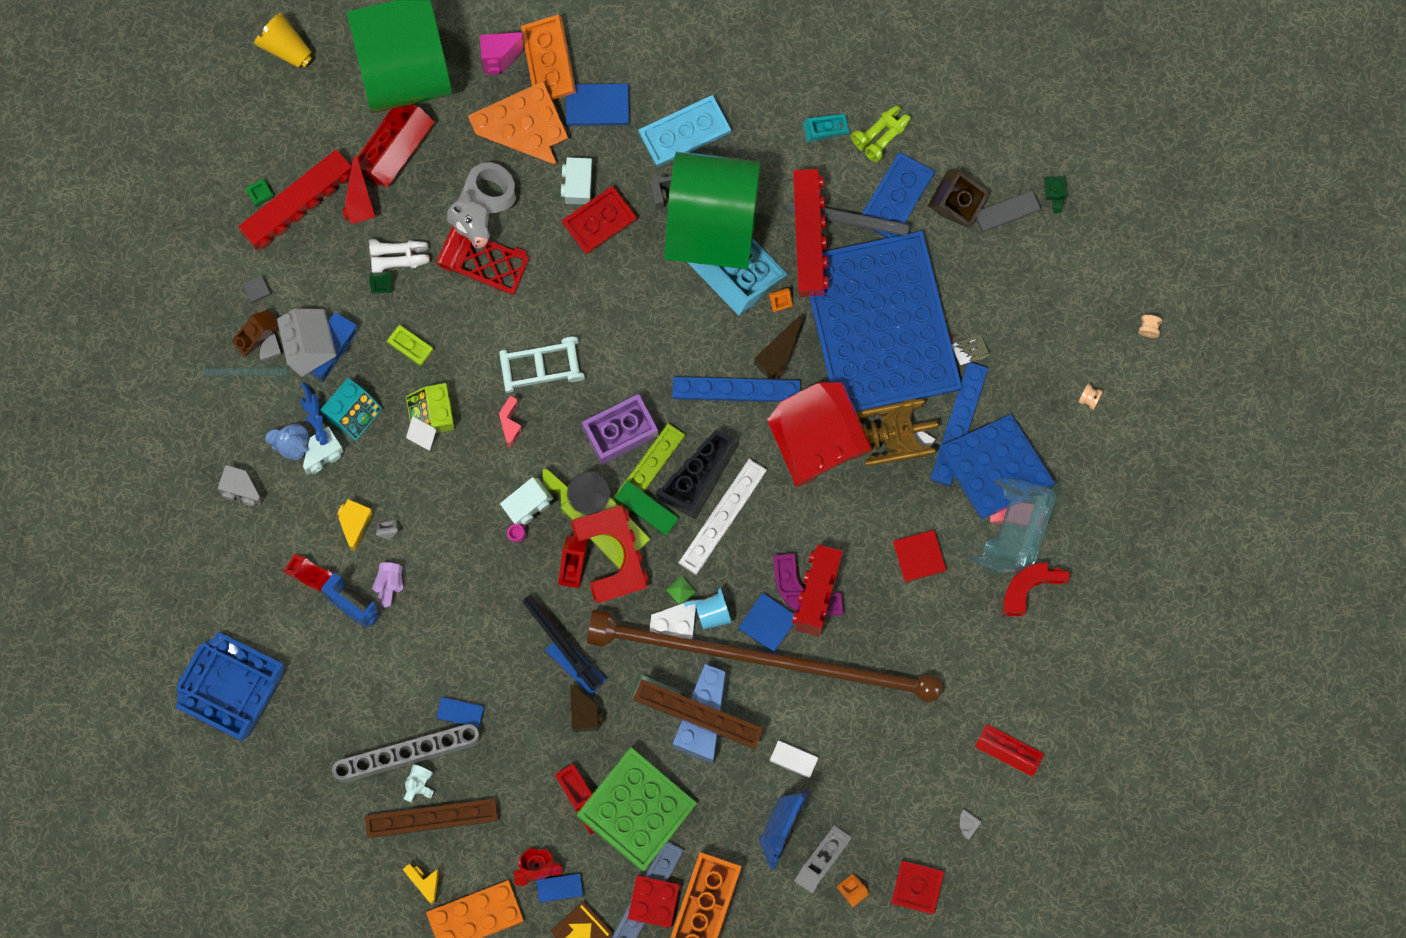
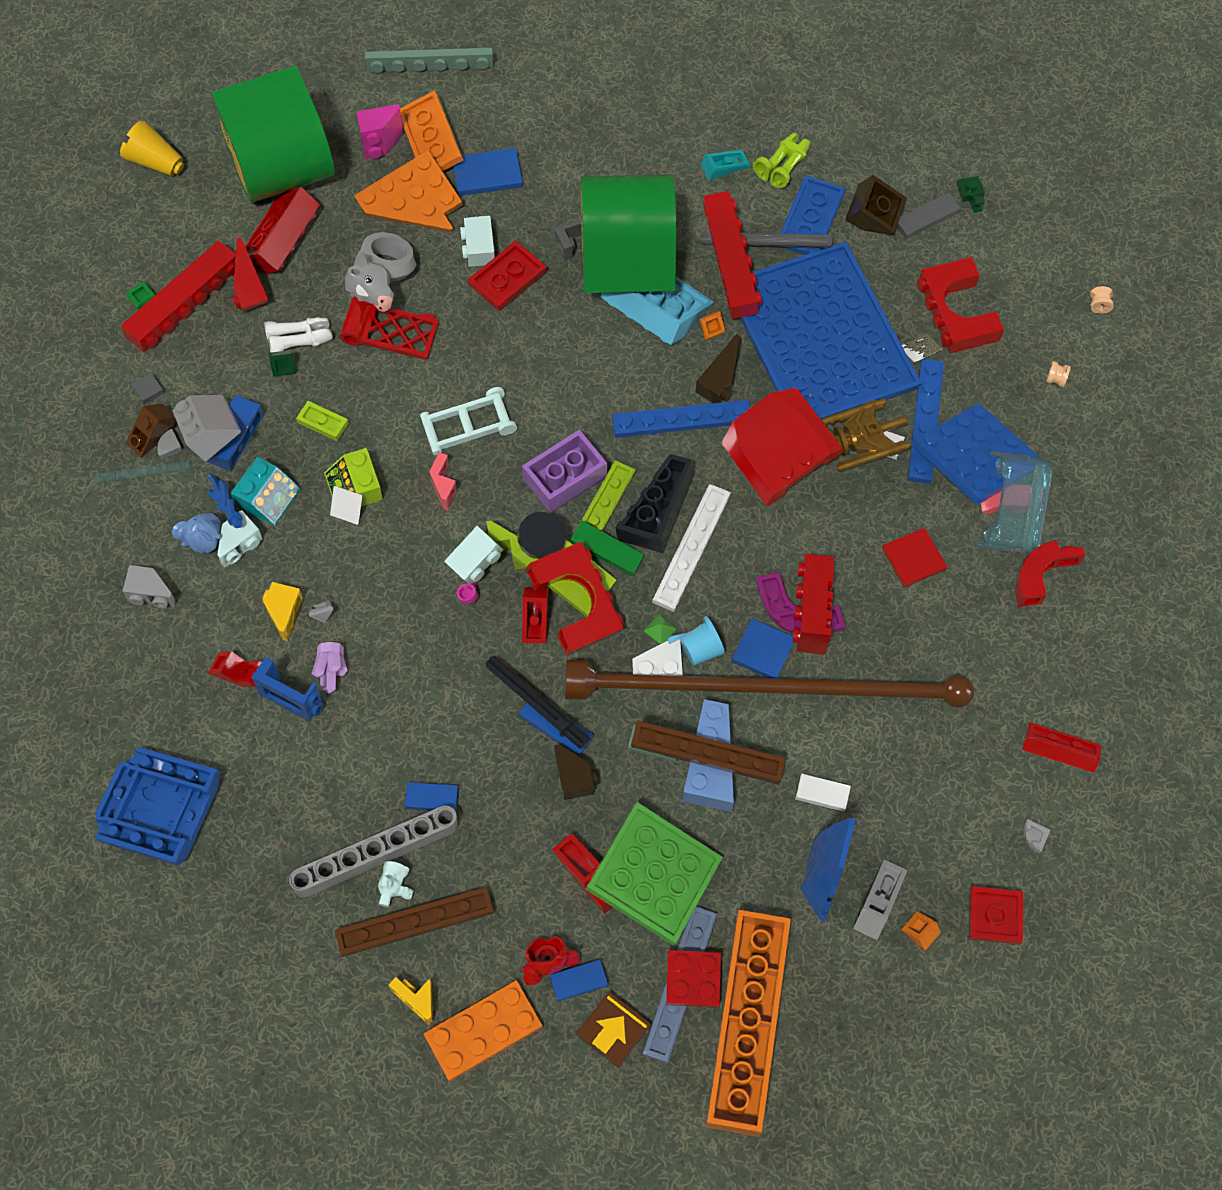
camera: 10 degrees left, 10 degrees down
(684, 130) = (563, 190): medium azure plate -> none
(1009, 340) = (956, 331): none -> red arch

